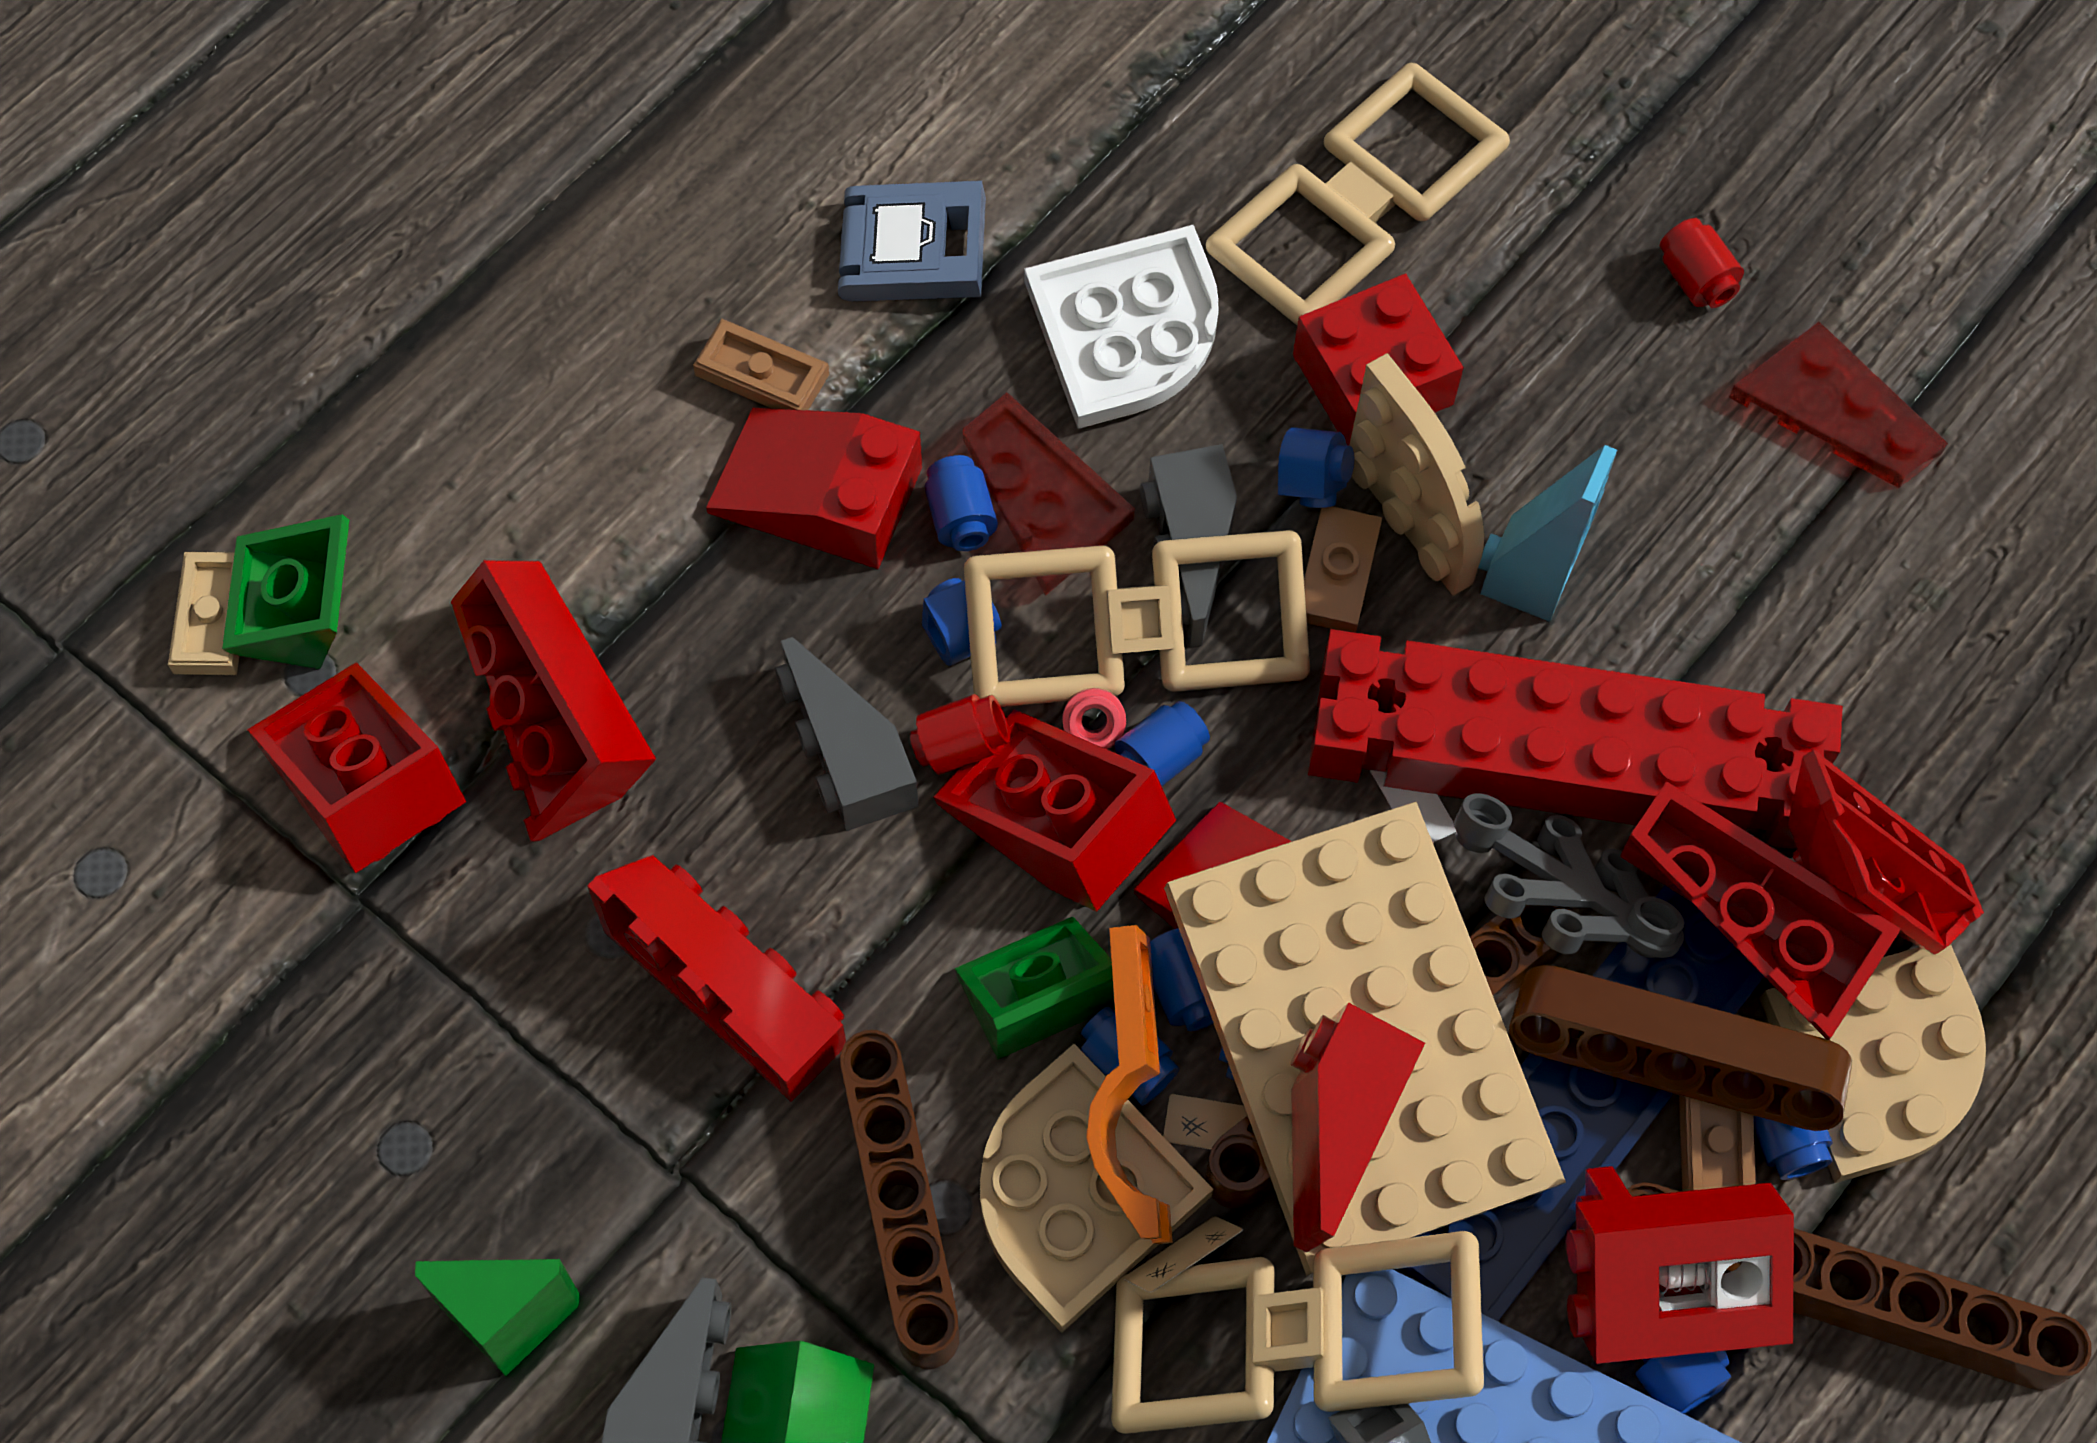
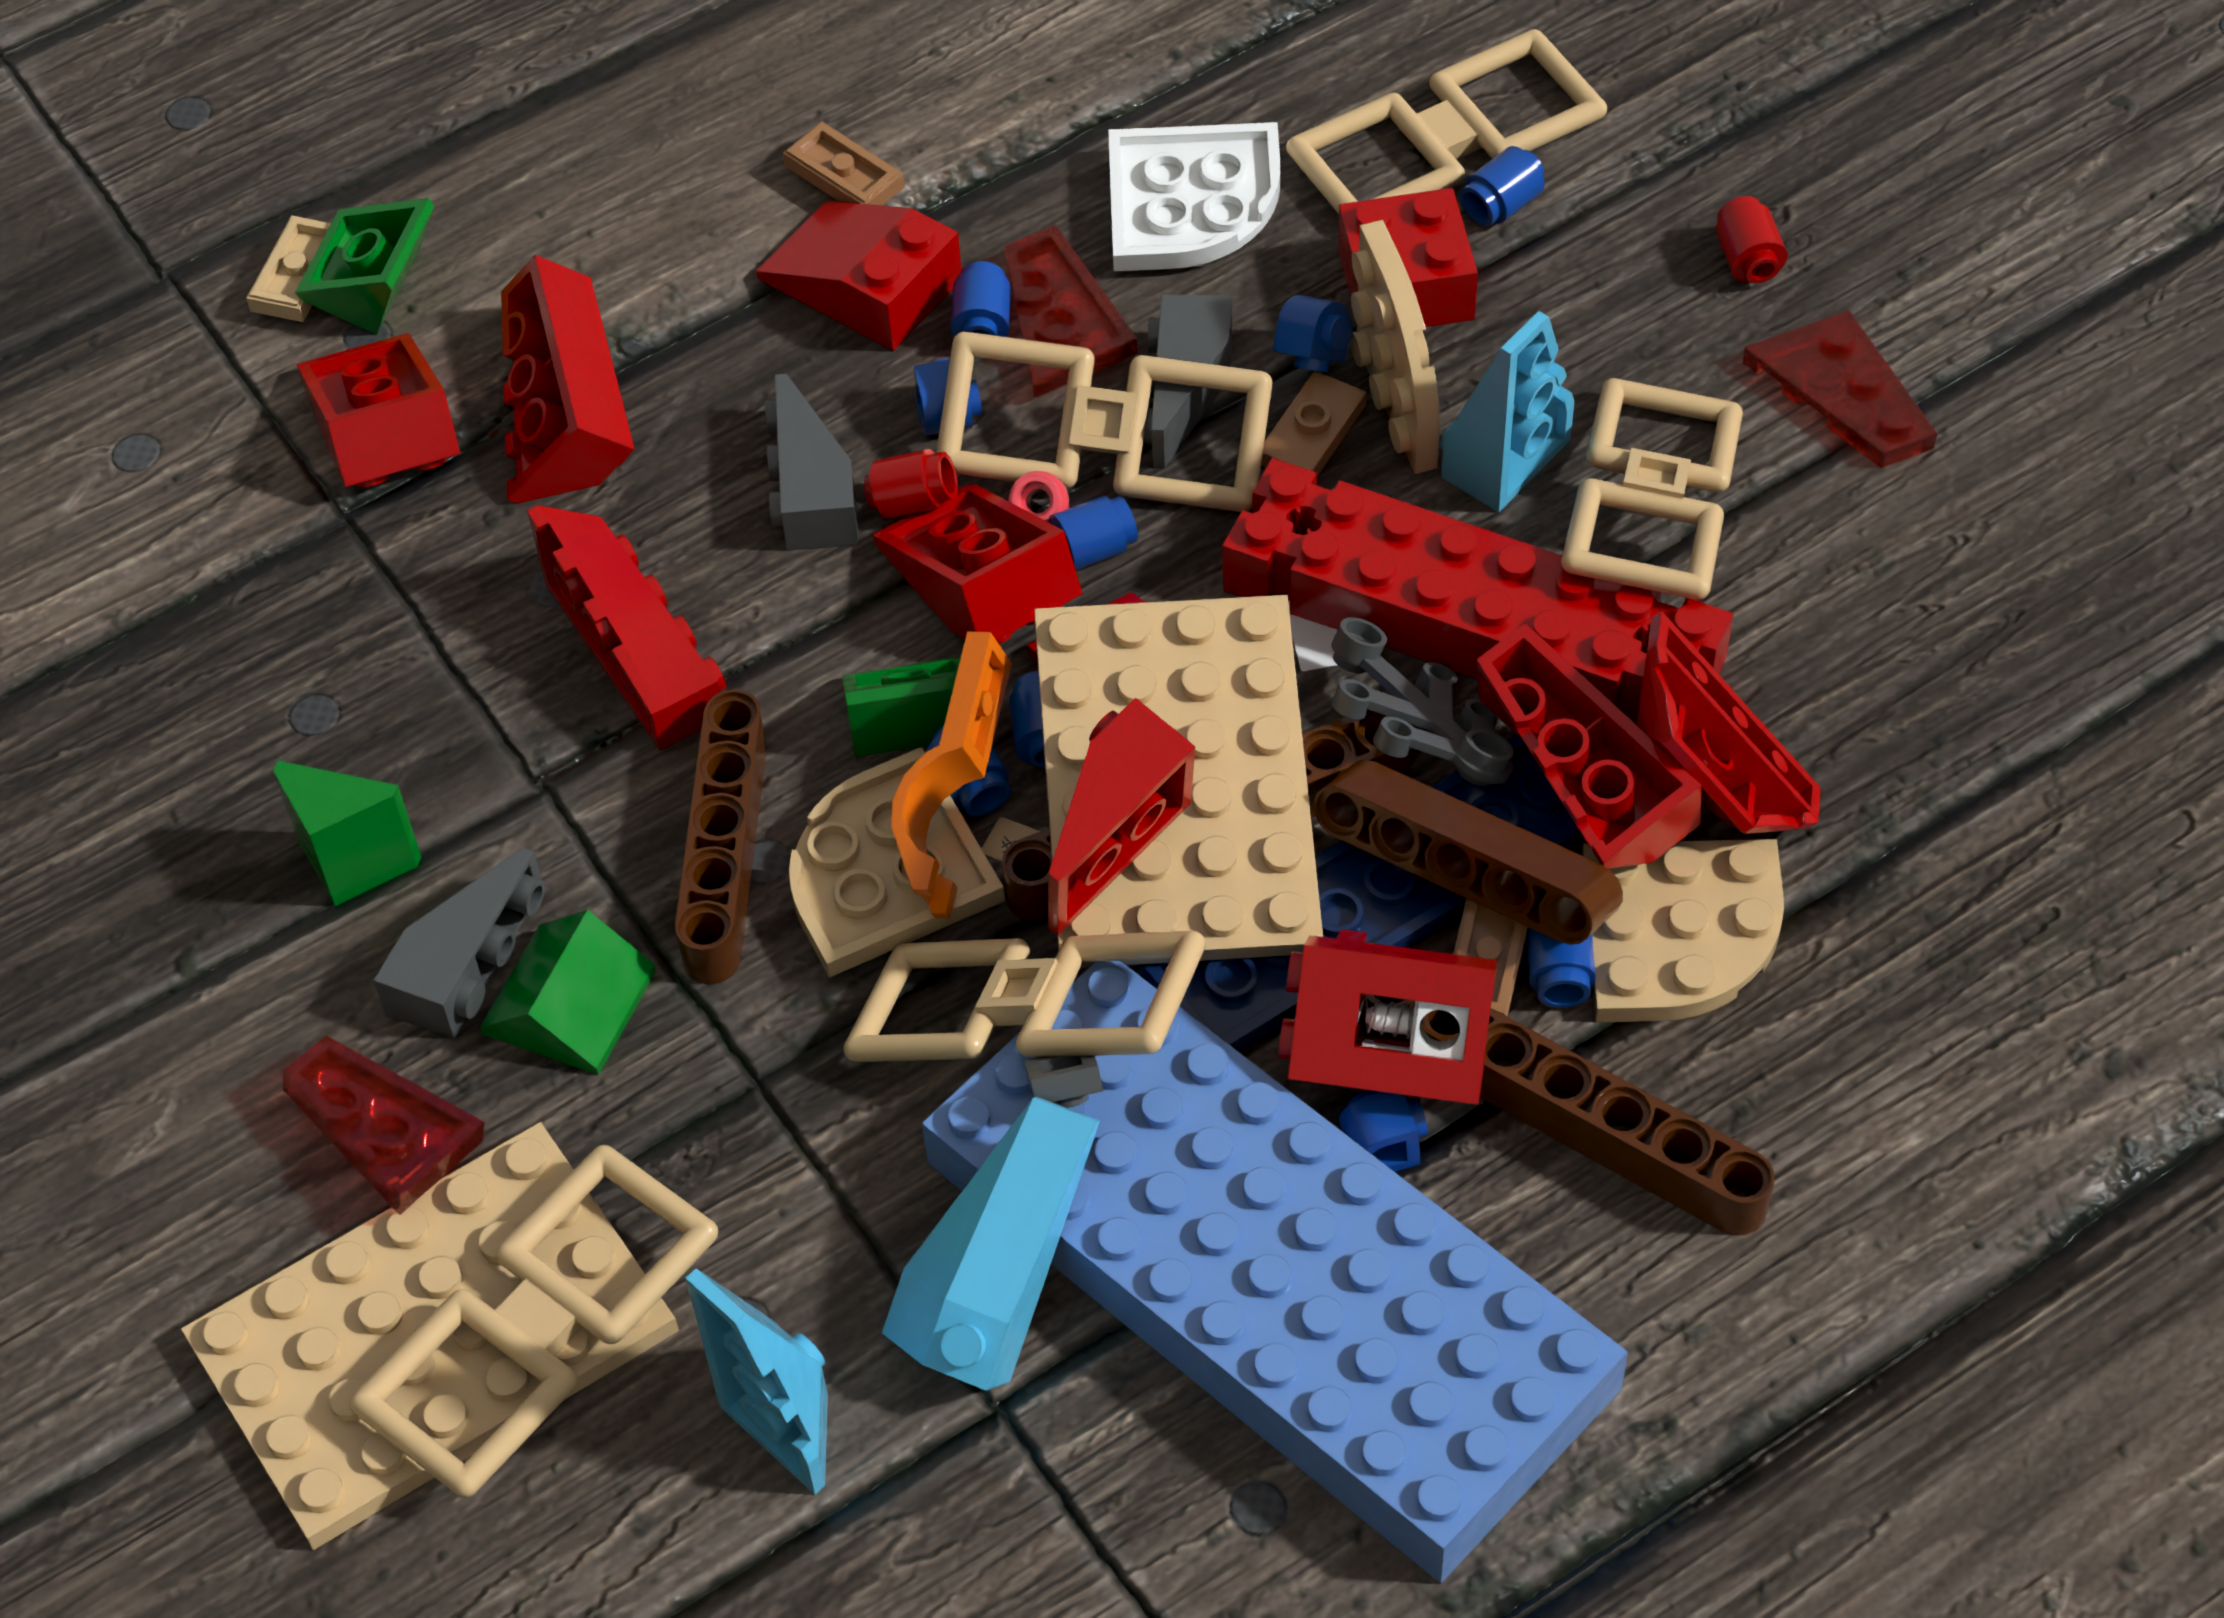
camera: 20 degrees right, 10 degrees down
(898, 241) = (1003, 92): sand blue container -> none
(1182, 1254) = (958, 934): tan sticker -> none
(1441, 251) = (1502, 186): none -> blue brick
(1713, 575) = (1653, 487): none -> tan bar

